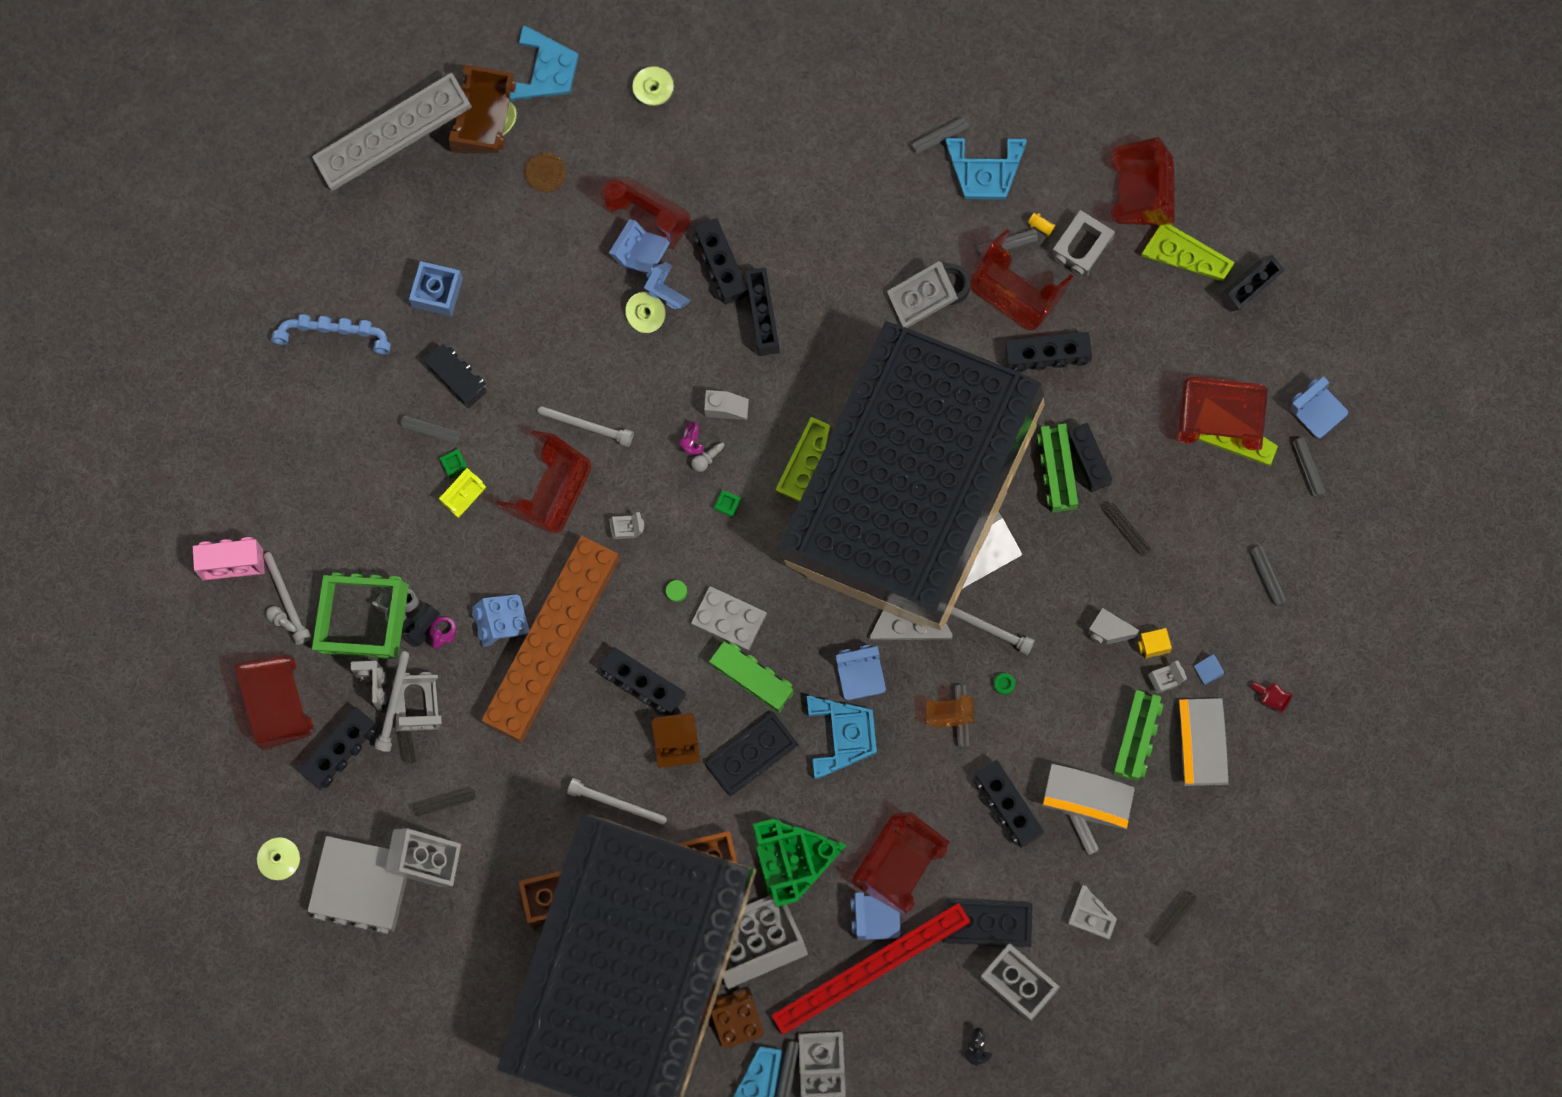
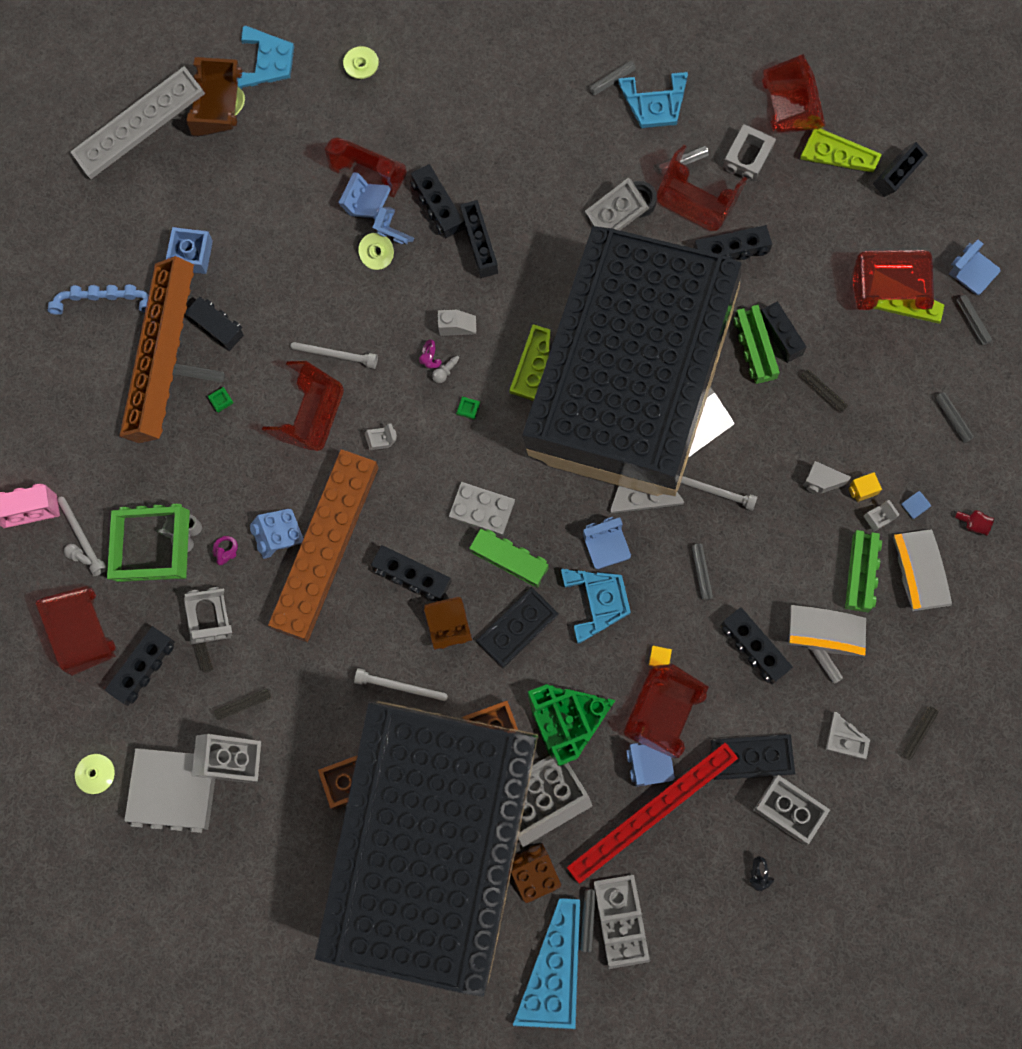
camera: 10 degrees left, 0 degrees up
(372, 671) = (164, 593): light grey bracket -> none
(384, 741) = (181, 654): light grey piece -> none
(390, 400) = (157, 350): none -> dark orange brick
(415, 628) = (200, 550): black piece -> none
(462, 493) = (230, 424): neon yellow hinge -> none
(545, 178) = (276, 144): clear orange tile -> none
(676, 591) = (432, 489): bright green tile -> none
(902, 803) = (660, 656): none -> yellow tile
(950, 712) = (692, 569): clear orange panel -> none
(1004, 684) = (735, 538): green tile -> none
(1041, 224) = (710, 141): yellow pin -> none

